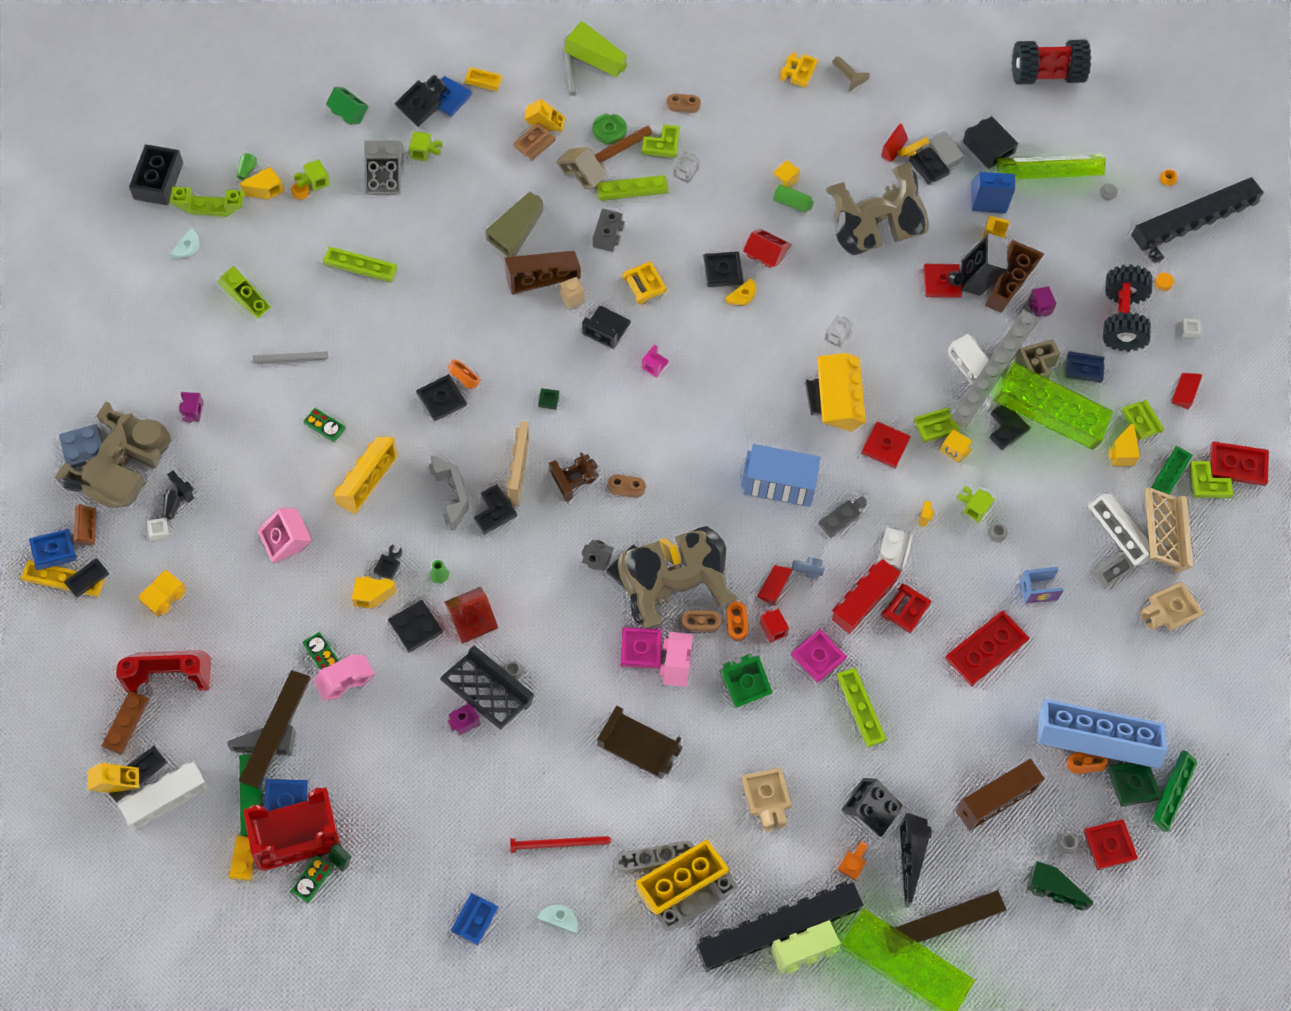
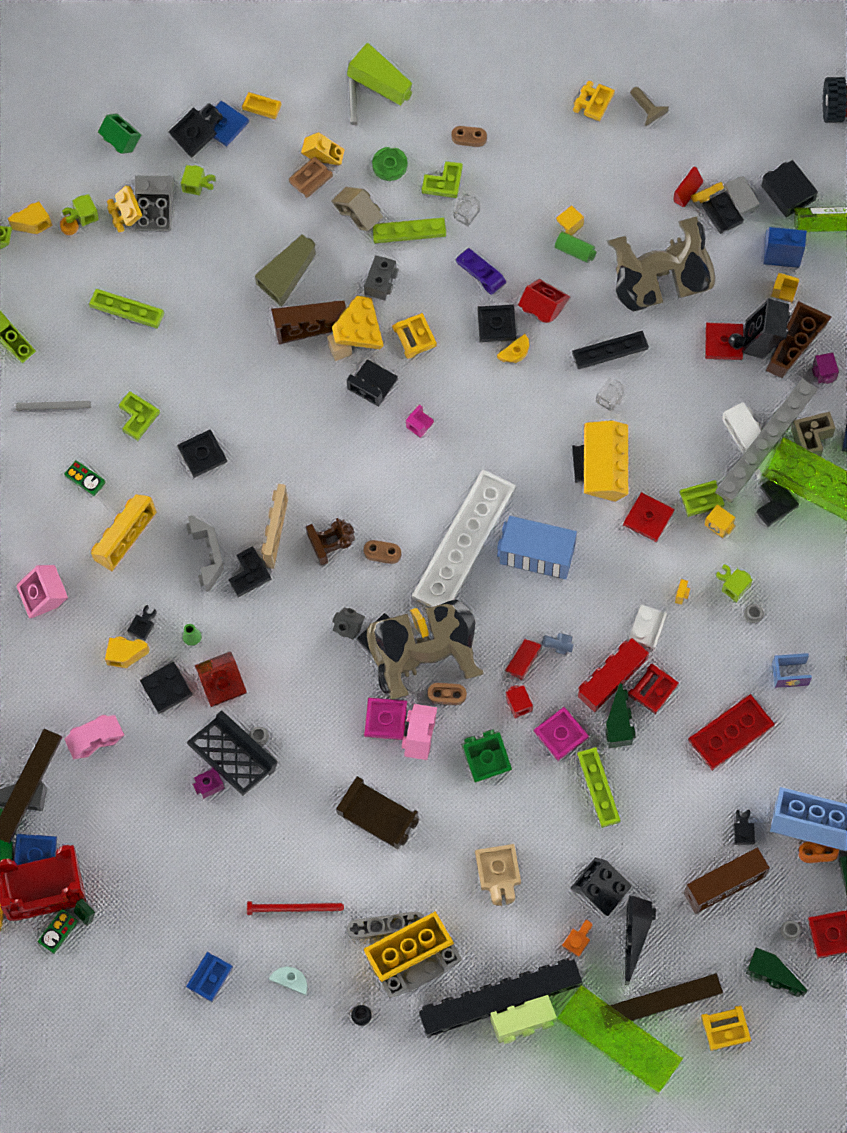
camera: 10 degrees right, 5 degrees up
(246, 165) = (15, 197): bright green cone -> none
(320, 651) = (73, 710): tile -> none
(357, 169) = (127, 205): none -> yellow plate
(379, 363) = (142, 415): none -> lime plate
(464, 374) = (225, 429): orange plate -> none
(548, 398) = (310, 457): dark green tile -> none
(590, 273) = (358, 325): none -> yellow plate
(623, 144) = (401, 182): dark orange axle -> none
(635, 958) = (364, 1021): none -> black piece
(700, 218) = (480, 269): none -> dark purple plate
(707, 472) = (464, 540): none -> white plate
(737, 622) = (482, 696): orange plate -> none
(834, 290) = (610, 350): none -> black plate
(842, 516) = (597, 591): dark grey hinge -> none
(875, 645) = (618, 726): none -> dark green slope
(1009, 745) = (743, 831): none -> black plate
(1014, 953) = (729, 1034): none -> yellow plate

